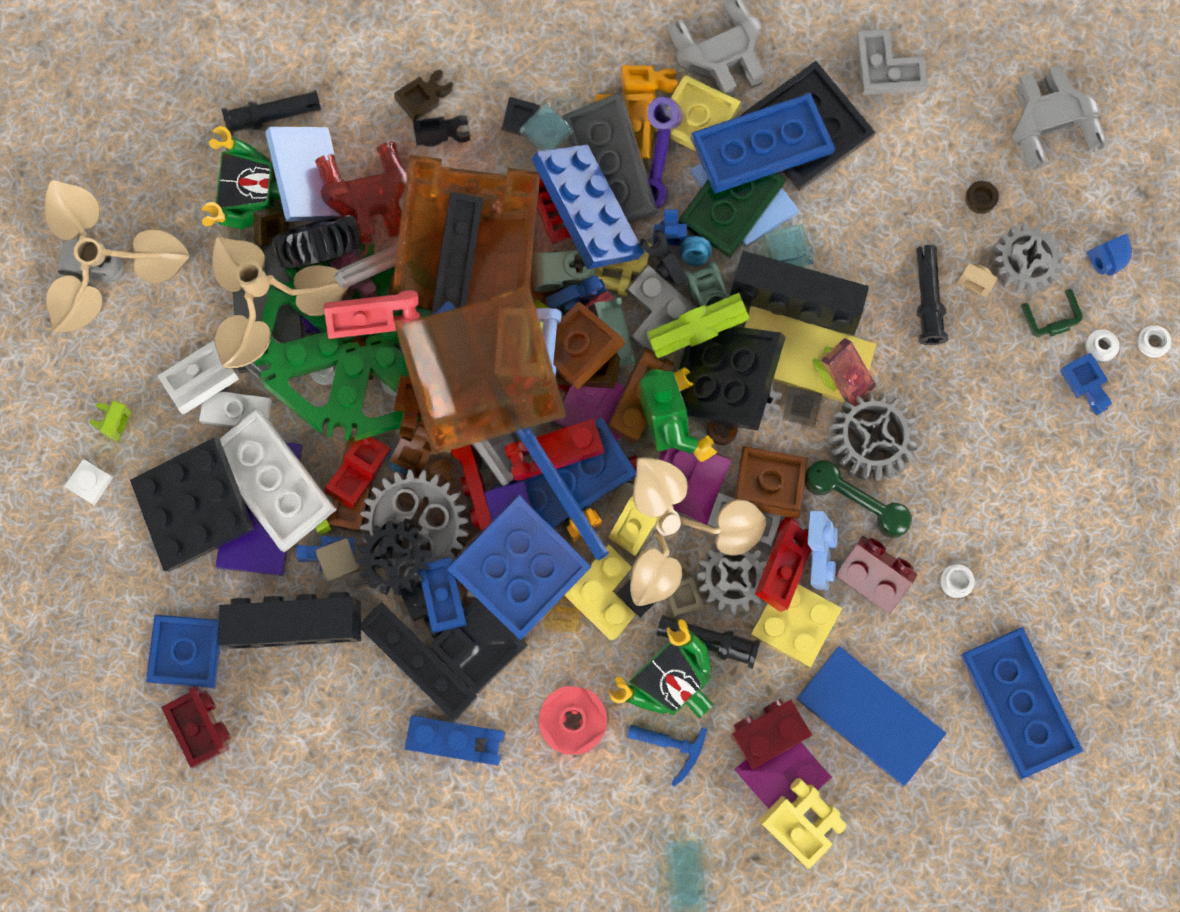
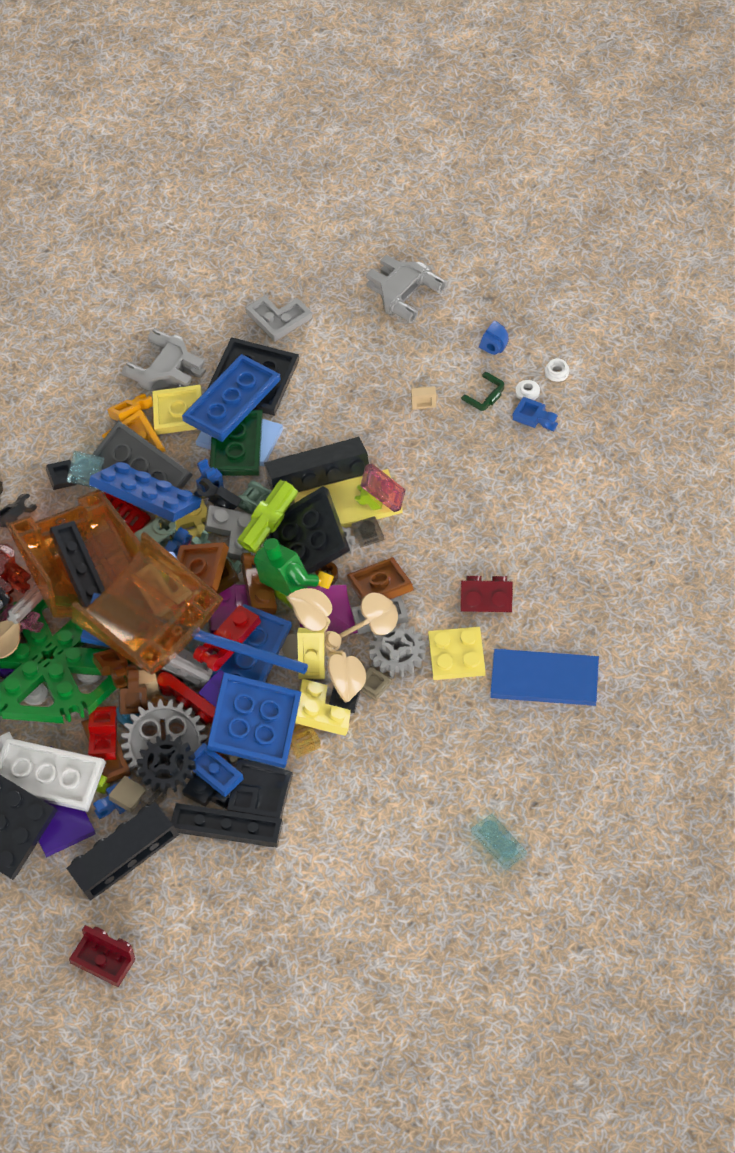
camera: 30 degrees left, 20 degrees down
(184, 651) = (59, 919): blue tile -> none
(369, 314) = (45, 633): coral plate -> none
(453, 740) = (285, 858): blue plate -> none
(592, 517) = (277, 675): light orange plate -> none
(592, 724) = (359, 810): coral plate -> none
(664, 740) = (424, 772): blue piece -> none
(665, 121) = (160, 420): dark purple piece -> none
(671, 677) = (401, 725): torso -> none
(695, 250) = (238, 485): dark azure plate -> none
(728, 641) = (420, 692): black pin -> none
(770, 734) = (489, 721): dark red bracket -> none
(777, 775) = (515, 743): magenta plate -> none
(784, 565) = (425, 619): red plate -> none
(789, 245) = (290, 444): clear light blue piece -> none
(795, 831) = (547, 766): light yellow plate -> none
(821, 540) = (439, 593): light blue plate -> none
(858, 460) = (440, 514): light grey gear -> none
(892, 519) = (412, 559): dark green piece -> none
(931, 309) = (407, 430): black pin -> none
(957, 581) = (539, 569): white plate -> none
(981, 197) = (391, 354): dark brown tile -> none
(1021, 703) = (632, 613): blue tile -> none
(1043, 258) = (446, 369): light grey gear -> none

